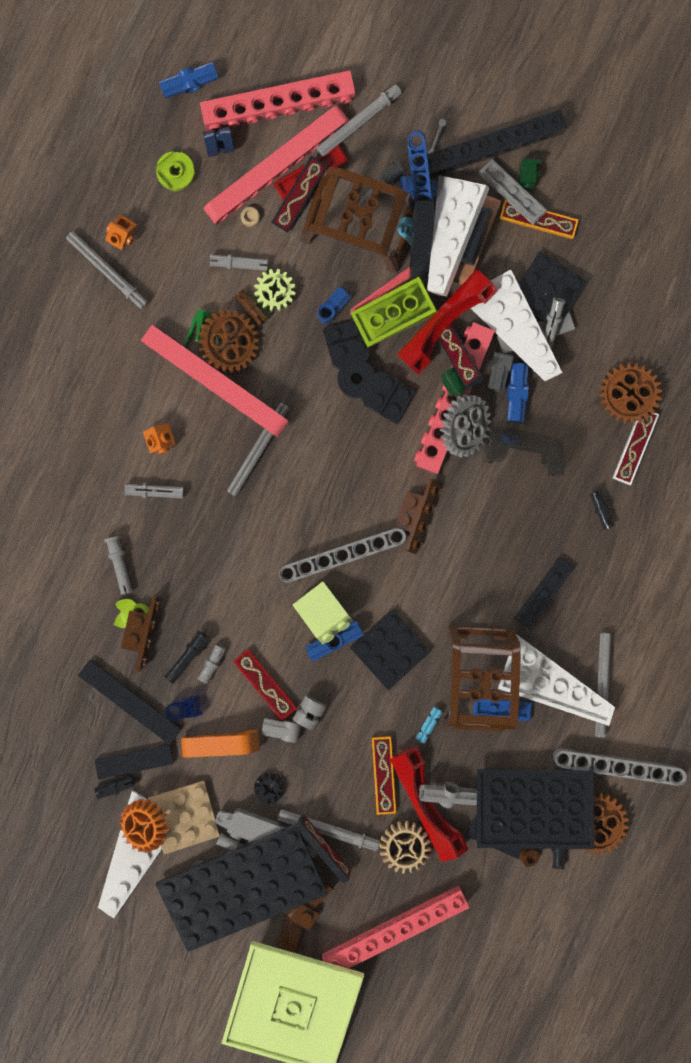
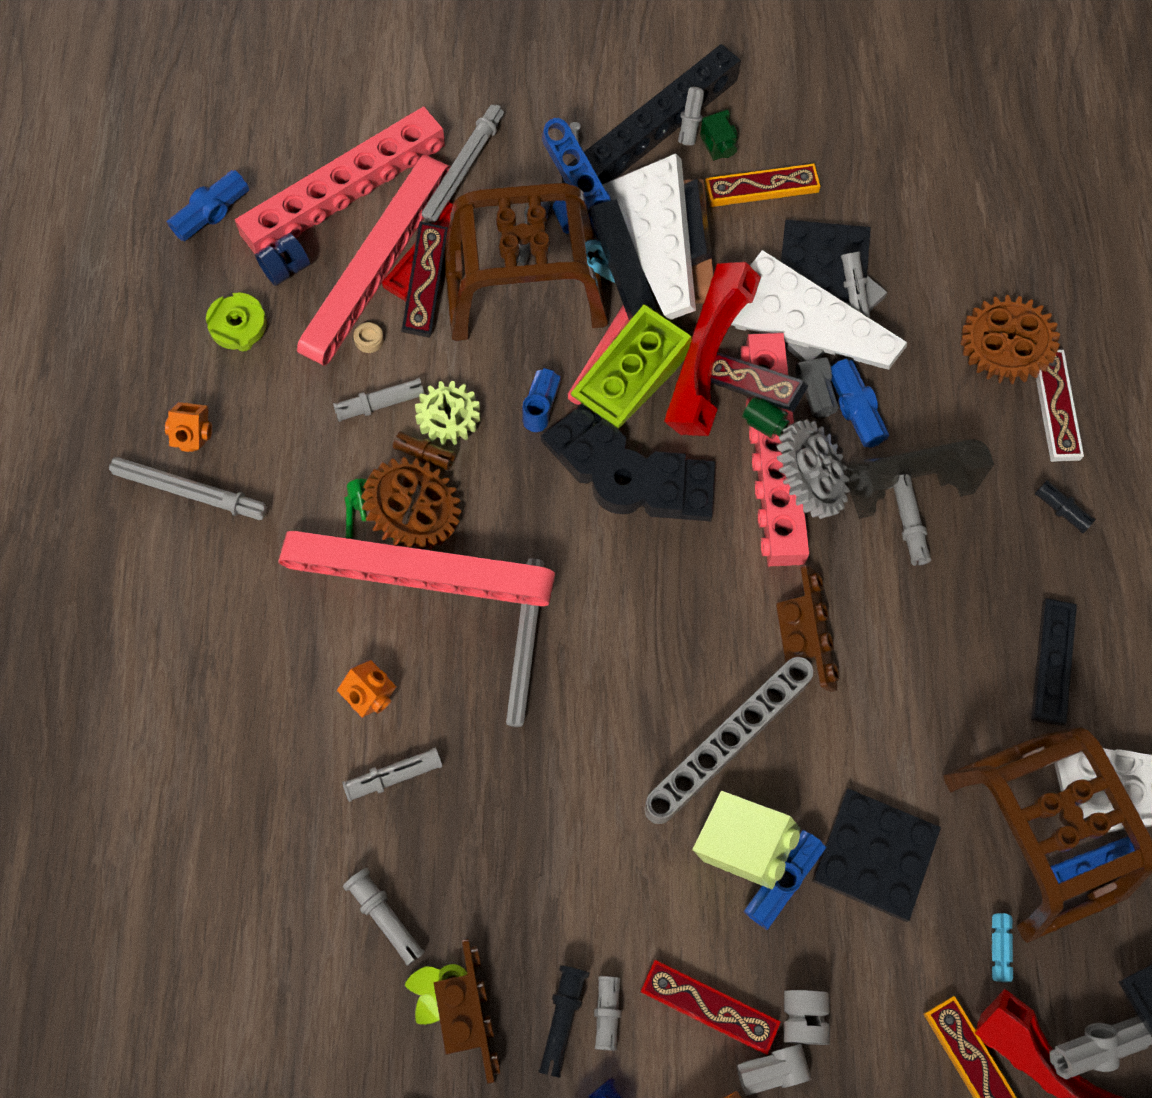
camera: 30 degrees left, 20 degrees down
(509, 477) = (913, 532): none -> light grey pin
(512, 192) = (715, 165): light grey tile -> none
(515, 154) = (691, 116): none -> light grey axle

